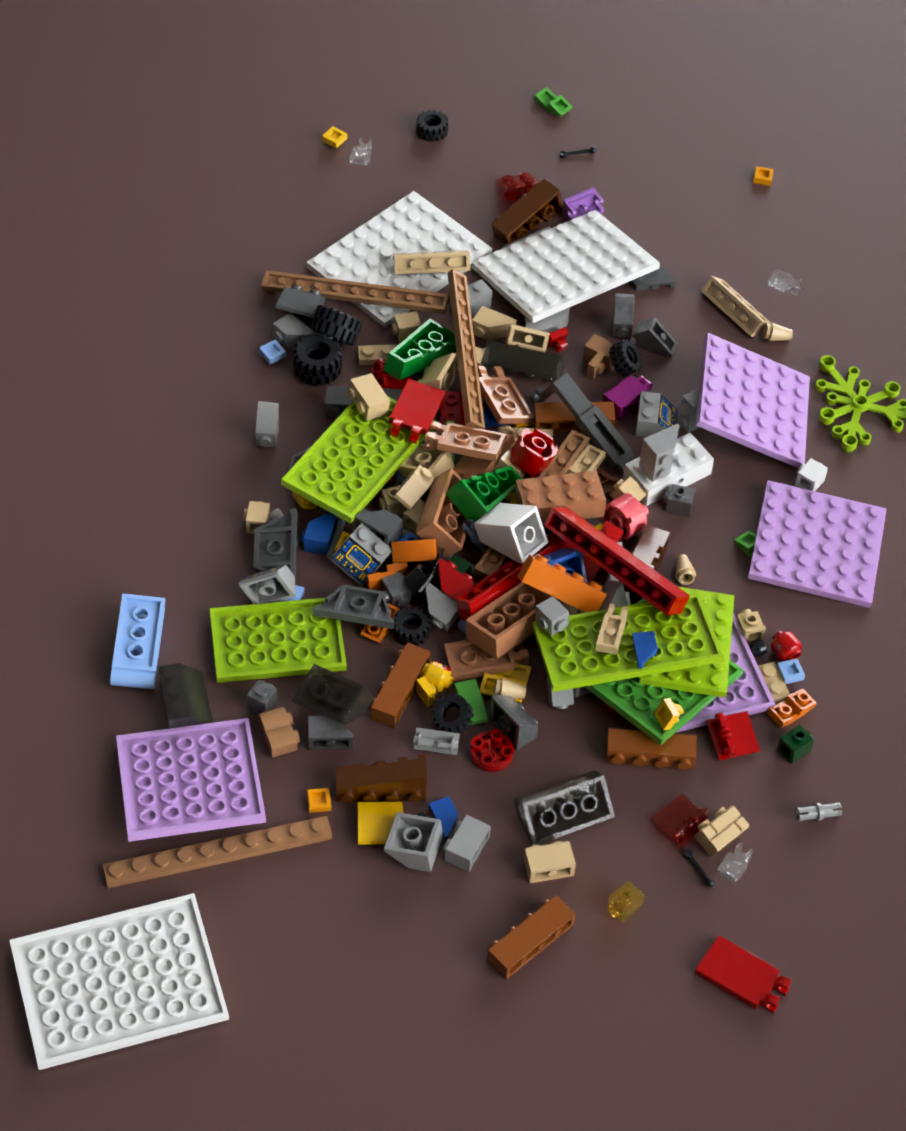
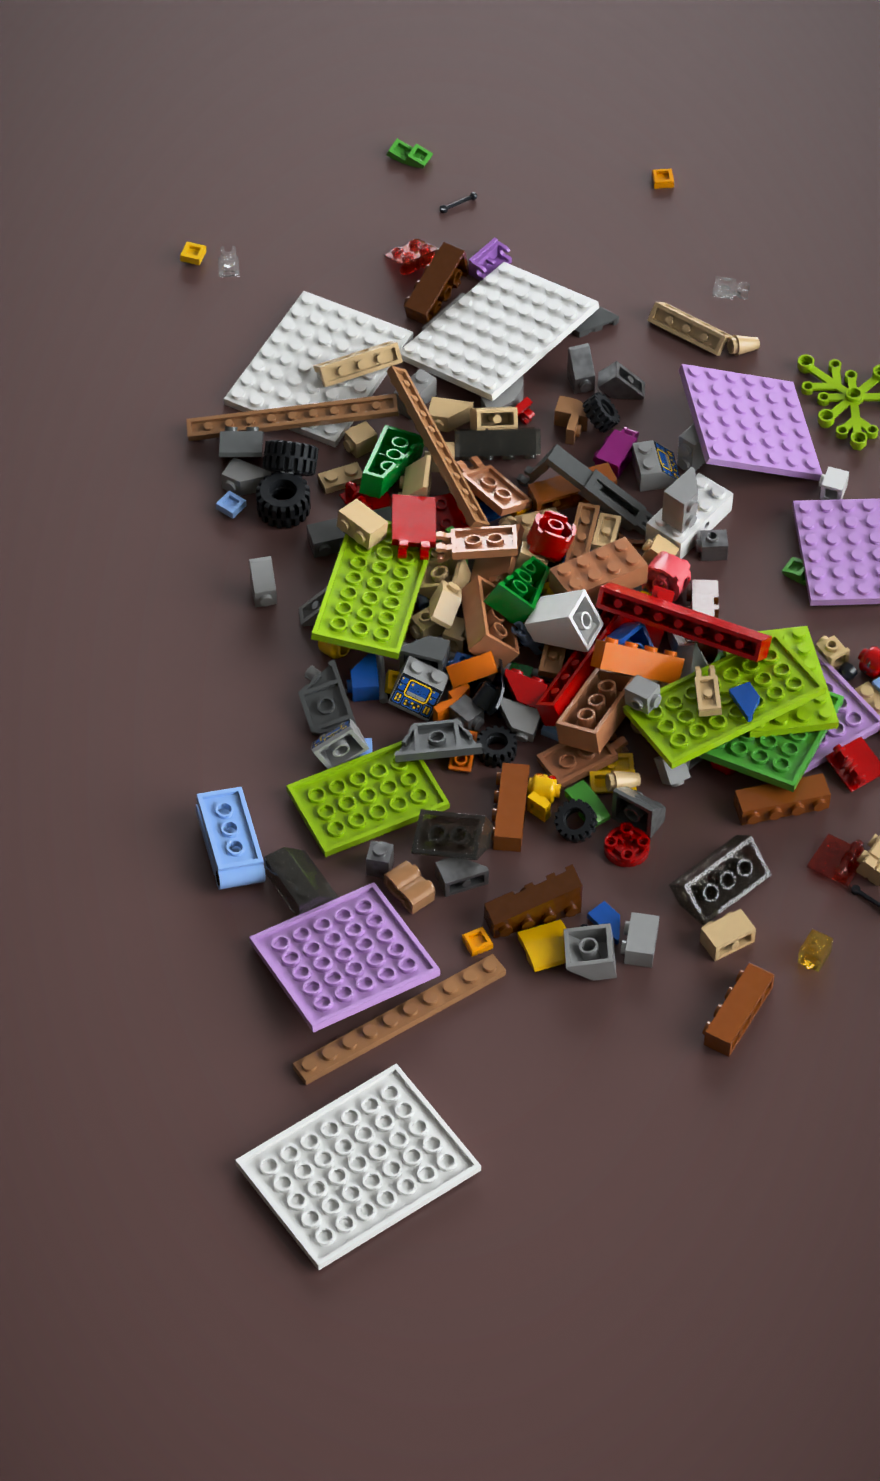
camera: 15 degrees left, 0 degrees up
(256, 515) = (292, 679): tan brick -> none
(435, 132) = (295, 221): black tyre -> none
(436, 741) = (569, 851): light grey hinge -> none
(668, 713) = (791, 758): yellow tile -> none
(684, 570) = (745, 614): tan cone -> none

